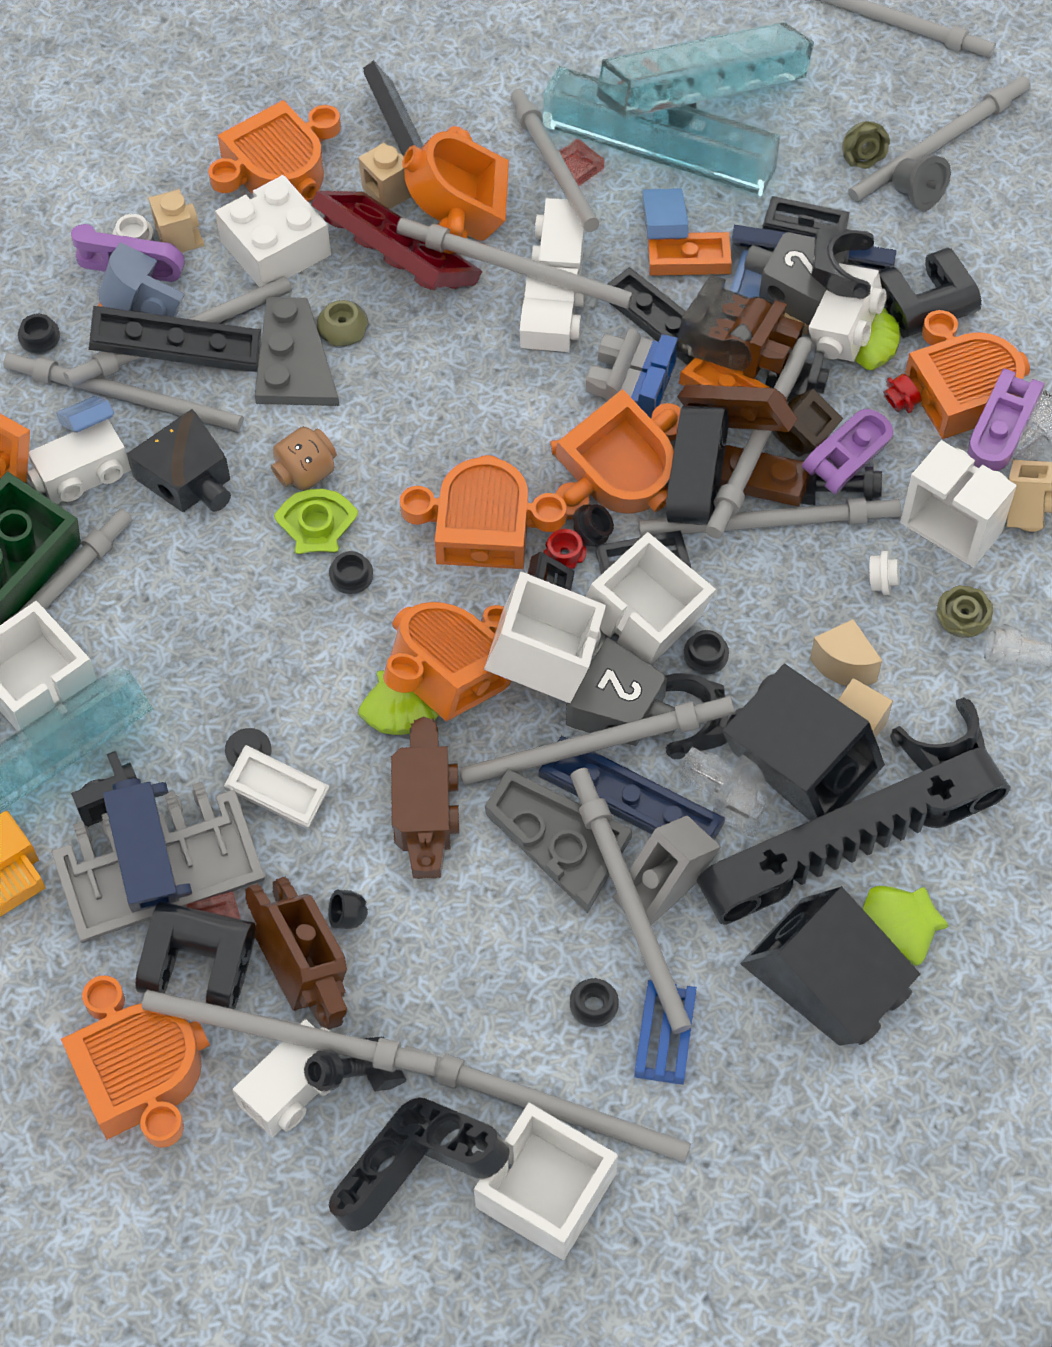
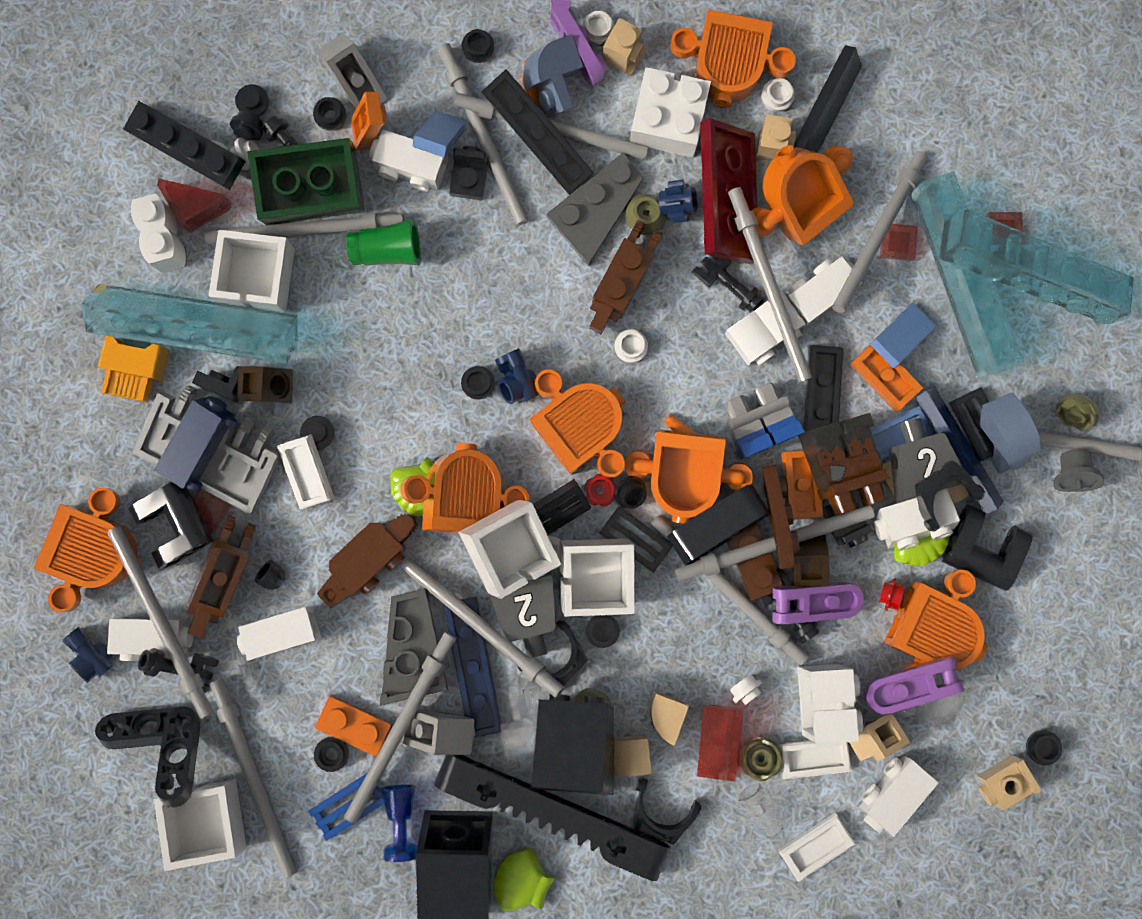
camera: 45 degrees right, 25 degrees up
(135, 540) = (385, 245): none -> green plant
(138, 418) = (469, 173): none -> black bracket
(152, 746) = (265, 384): none -> dark brown brick
(183, 465) = (461, 222): black torso -> none
(250, 1161) = (90, 659): none -> dark blue plate
(303, 458) = (524, 286): medium nougat head -> none
(316, 519) = (494, 329): lime animal -> none
(346, 150) = (777, 95): none -> white plate
(360, 283) = (678, 201): none -> dark blue gear
(383, 376) = (622, 278): none -> reddish brown hinge
(384, 534) = (517, 381): none -> dark blue plate
(417, 938) = (278, 633): none -> white brick
(450, 309) = (750, 299): none -> black hinge
(452, 423) = (631, 346): none -> white plate
(584, 956) = (353, 725): none -> orange plate
(714, 974) = (398, 807): none -> clear blue piece
(834, 188) = (1011, 432): none -> sand blue brick
(918, 628) = (720, 742): none -> clear red hinge
(1007, 568) = (812, 759): none -> white tile

